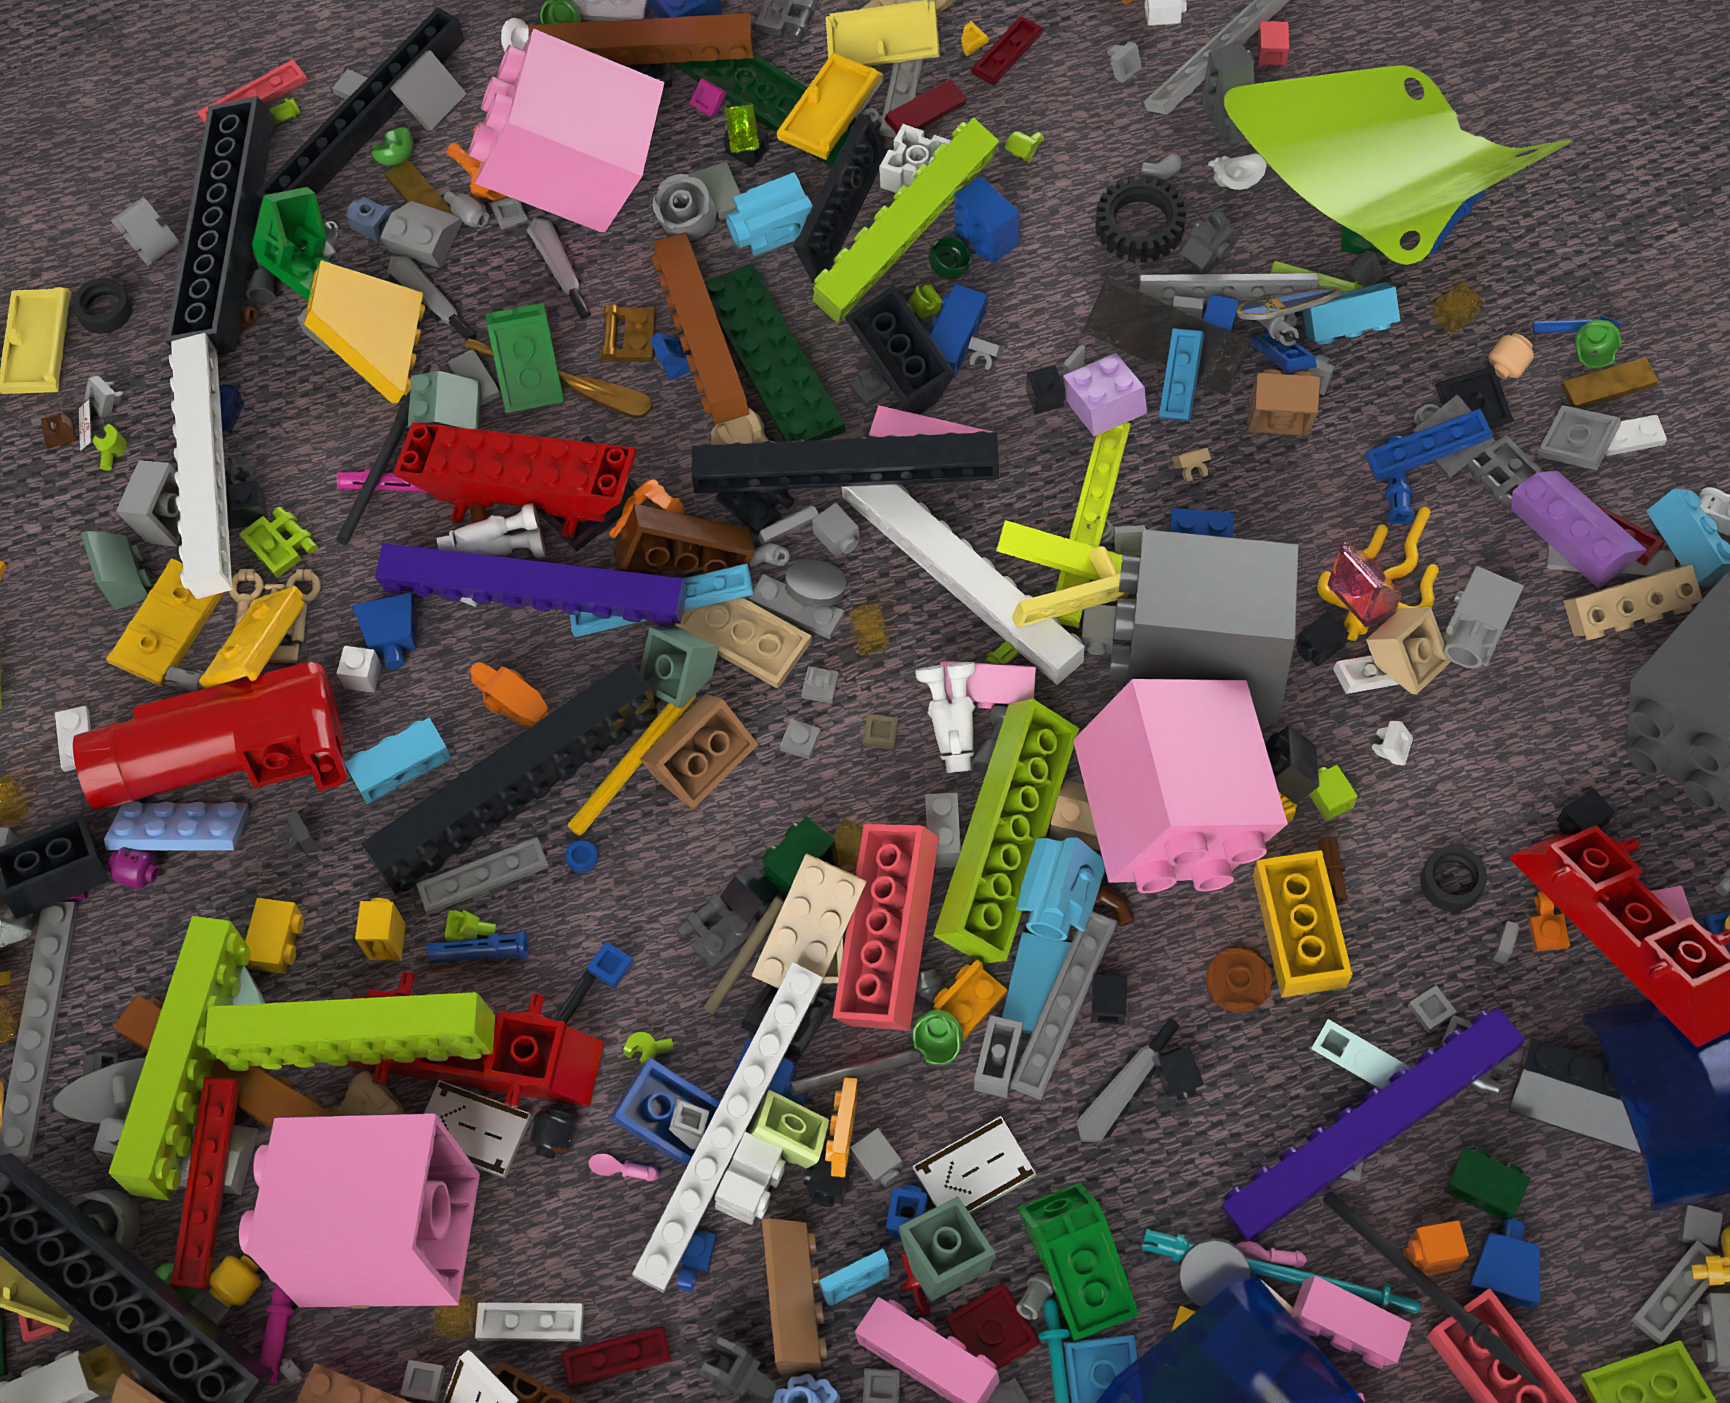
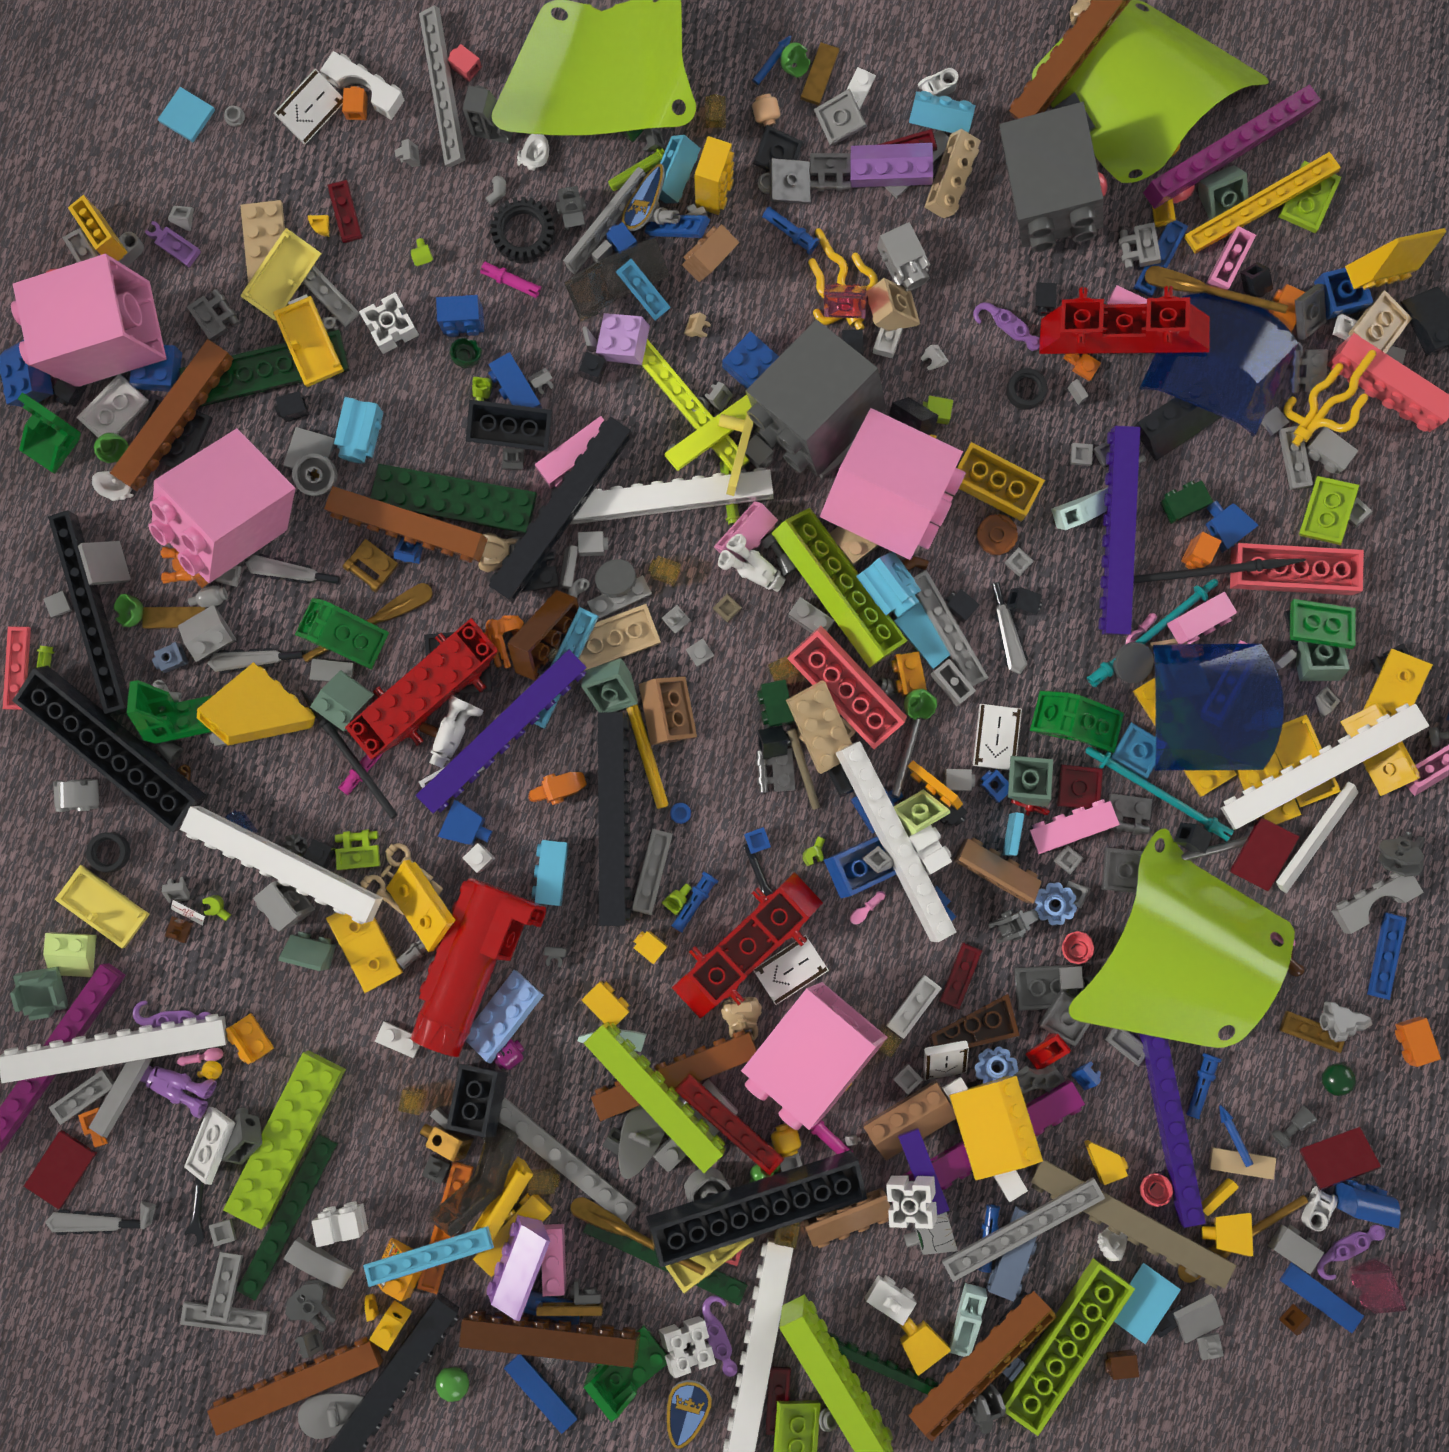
camera: 60 degrees left, 20 degrees up
(350, 1031) = (711, 1000): lime brick -> none
(552, 1132) = (824, 930): black head -> none
(707, 97) = (240, 404): dark pink tile -> none
(741, 128) = (289, 403): clear neon green brick -> none
(840, 198) = (379, 382): black plate -> none
(904, 220) = (431, 360): lime brick -> none
(927, 107) = (351, 288): dark red tile -> none
(1038, 1290) = (1080, 754): light grey pin -> none
(1071, 236) = (502, 276): none -> dark pink pin
(1226, 1032) = (1019, 562): none -> light grey tile
(1334, 868) = (968, 437): reddish brown axle -> none
(1374, 341) = (714, 175): none -> yellow brick
(1428, 445) = (788, 198): blue tile -> none
(1515, 798) = (1009, 324): none -> medium lavender piece

